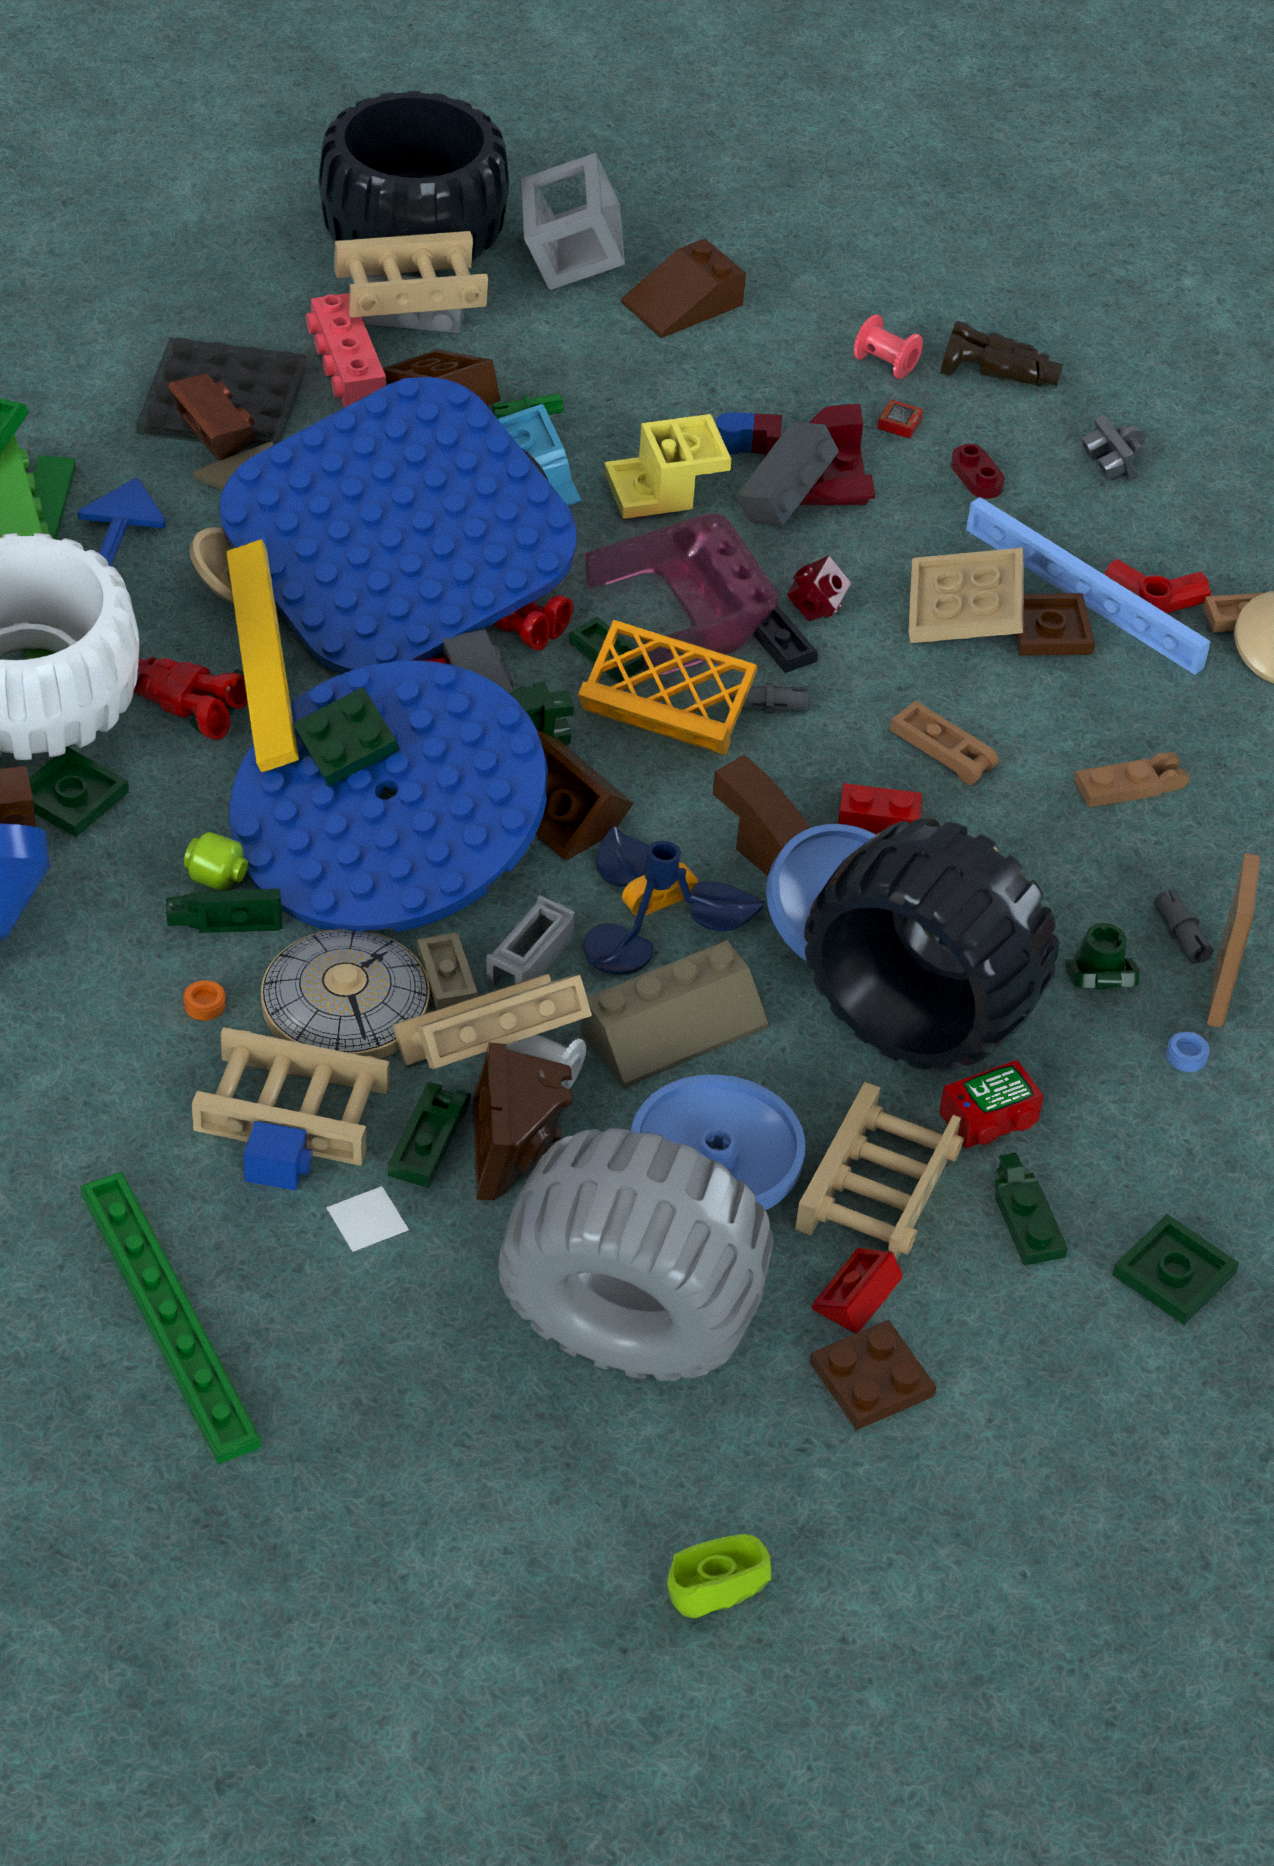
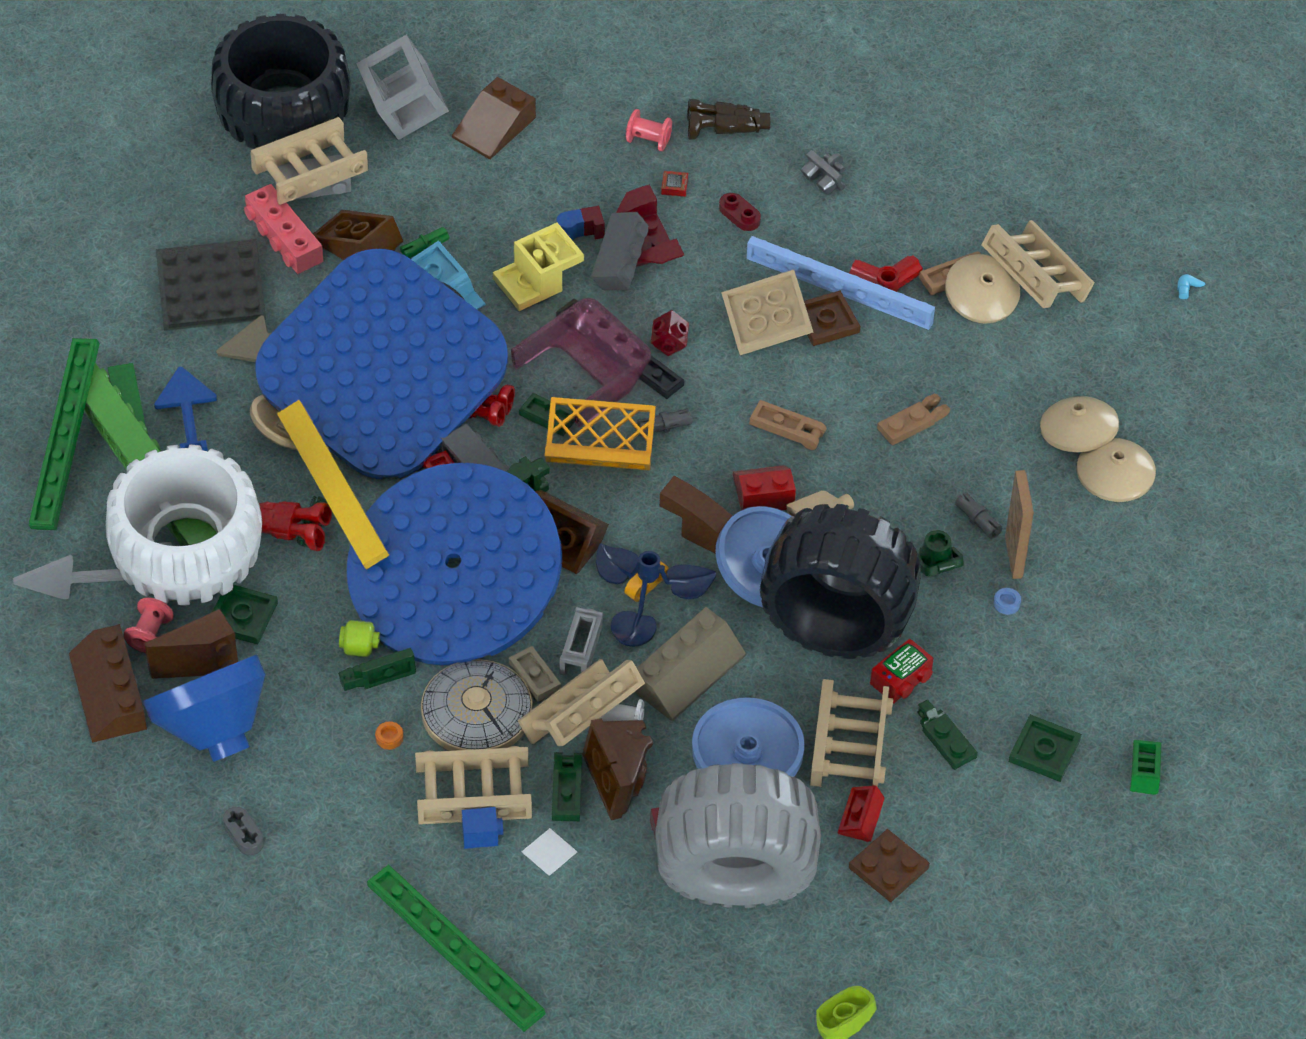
camera: 15 degrees left, 5 degrees up
(212, 415) = (219, 308): copper slope -> none
(346, 736) = (414, 531): dark green plate -> none

